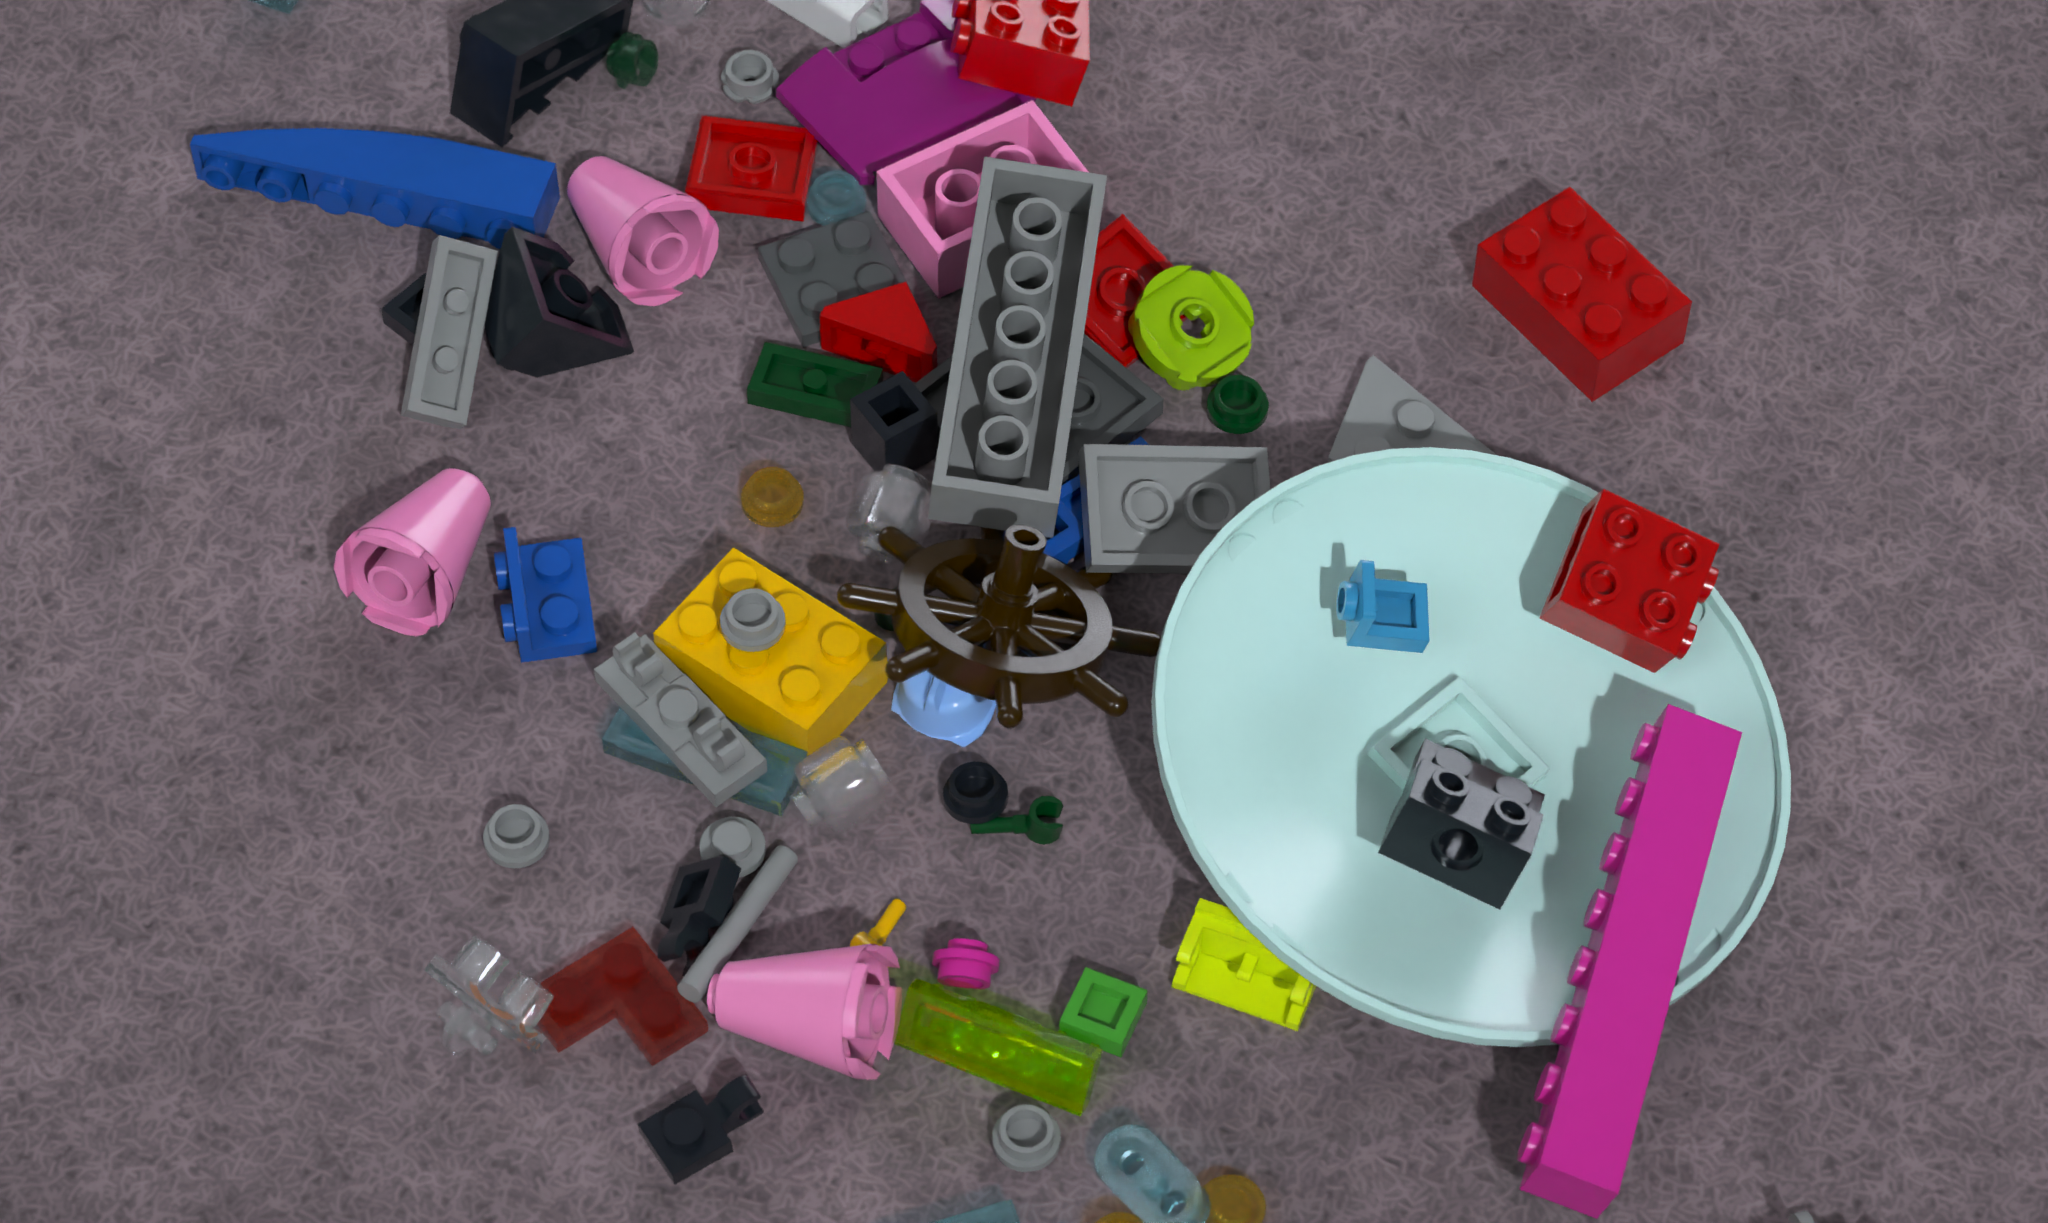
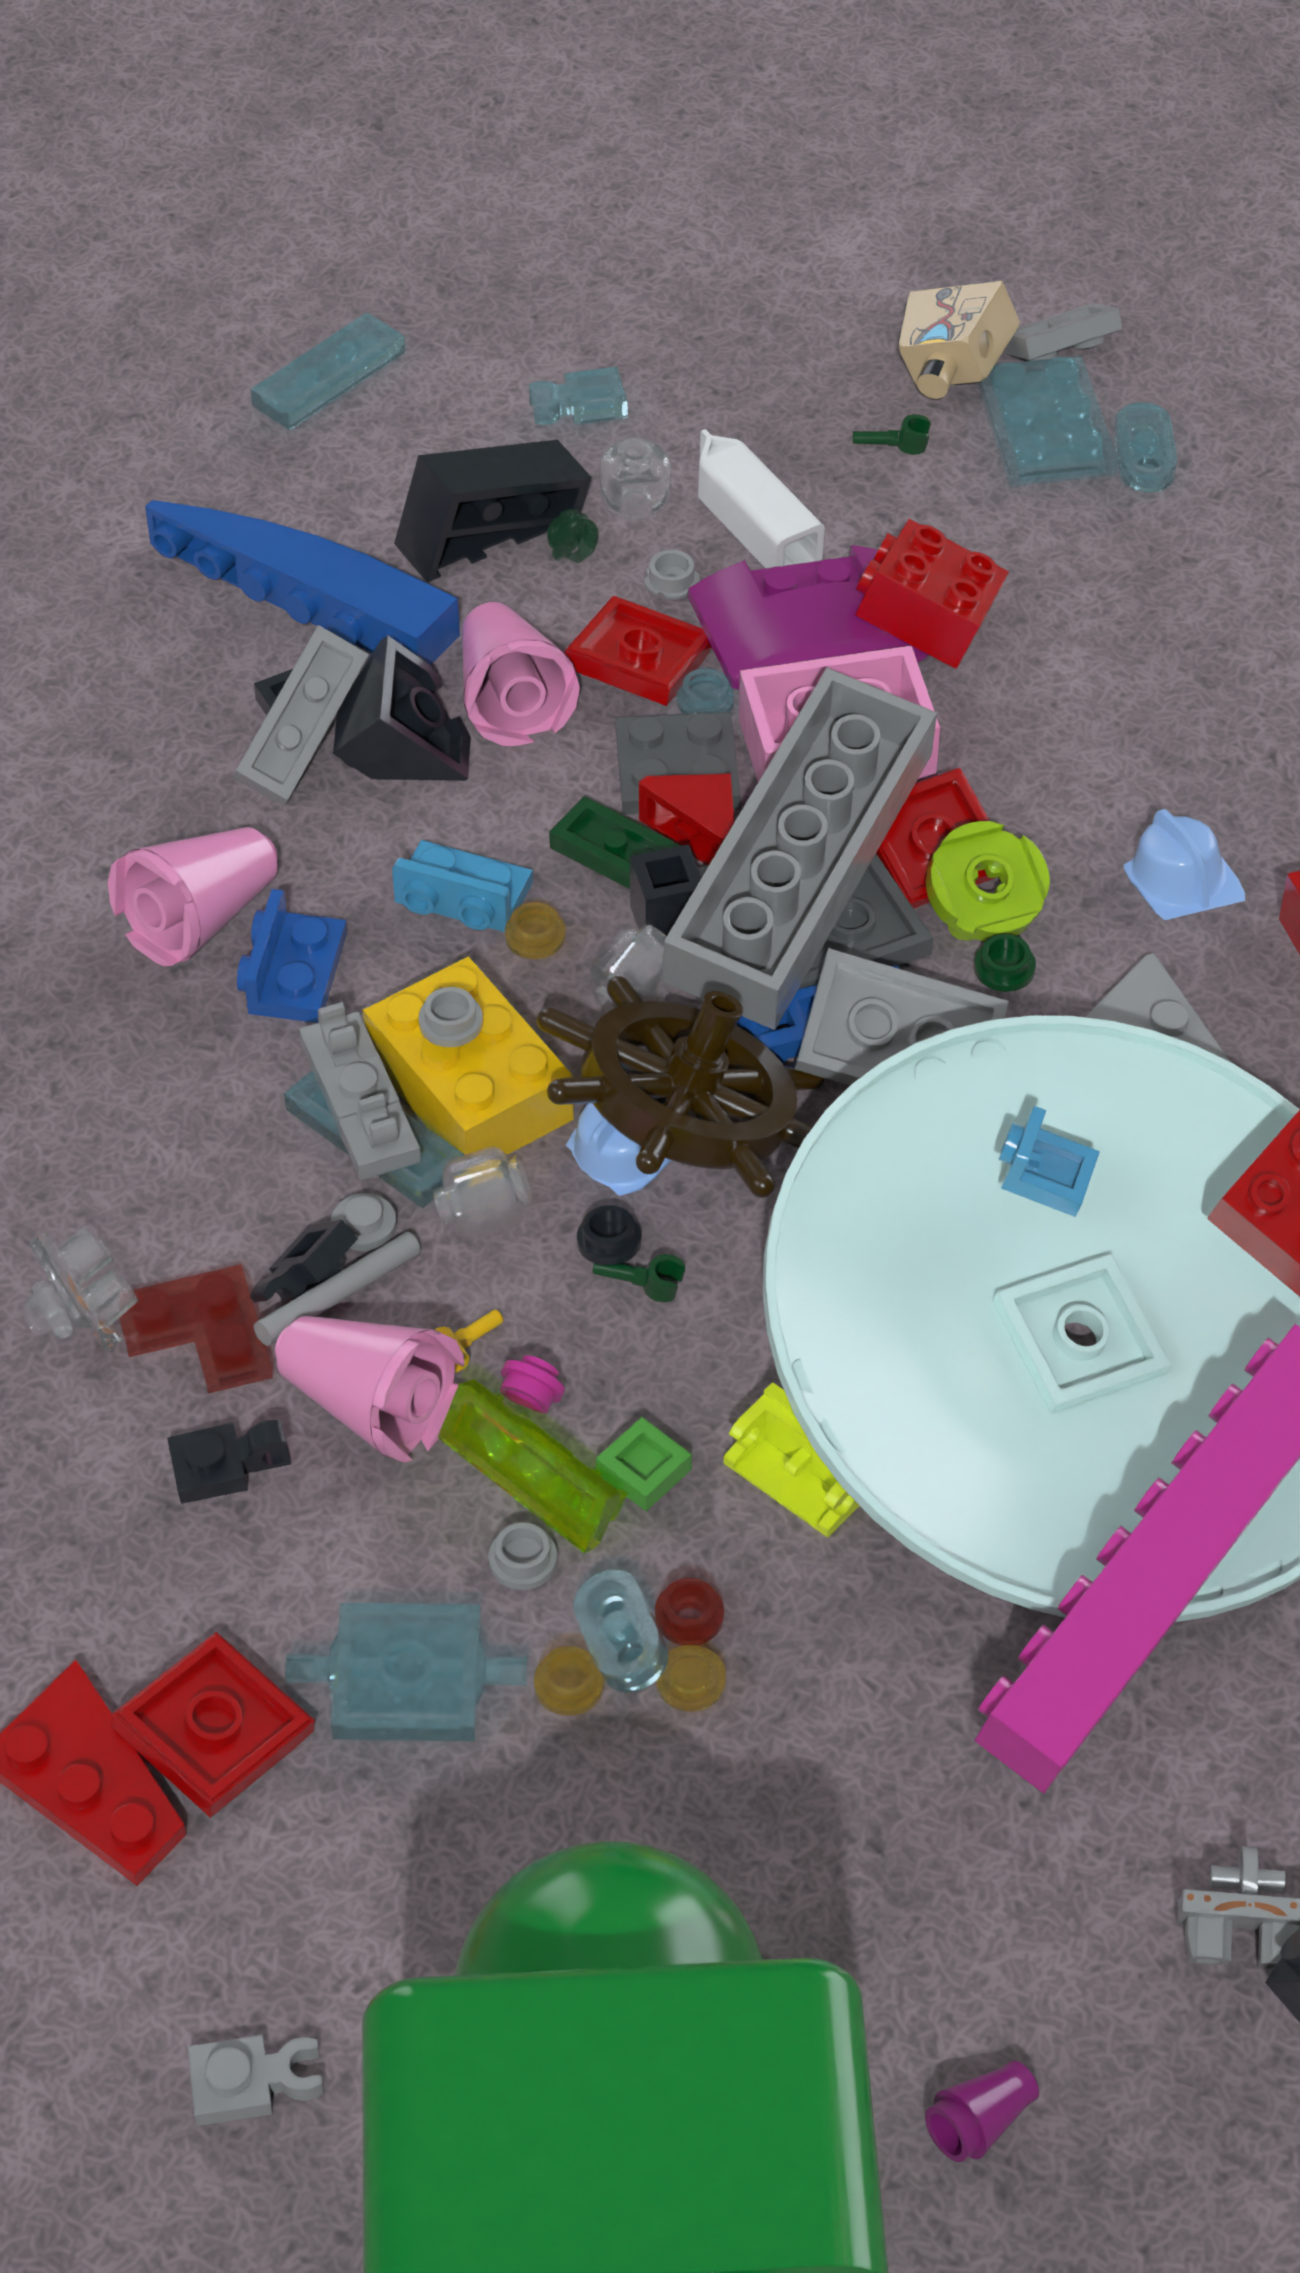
camera: 20 degrees right, 5 degrees down
(516, 836) = (172, 1158): light grey plate -> none
(679, 469) = (460, 886): none -> dark azure bracket
(1210, 1127) = (695, 1595): none -> clear red plate
(1365, 260) = (1182, 868): none -> light blue piece
(1464, 824) = (1050, 1381): black brick -> none

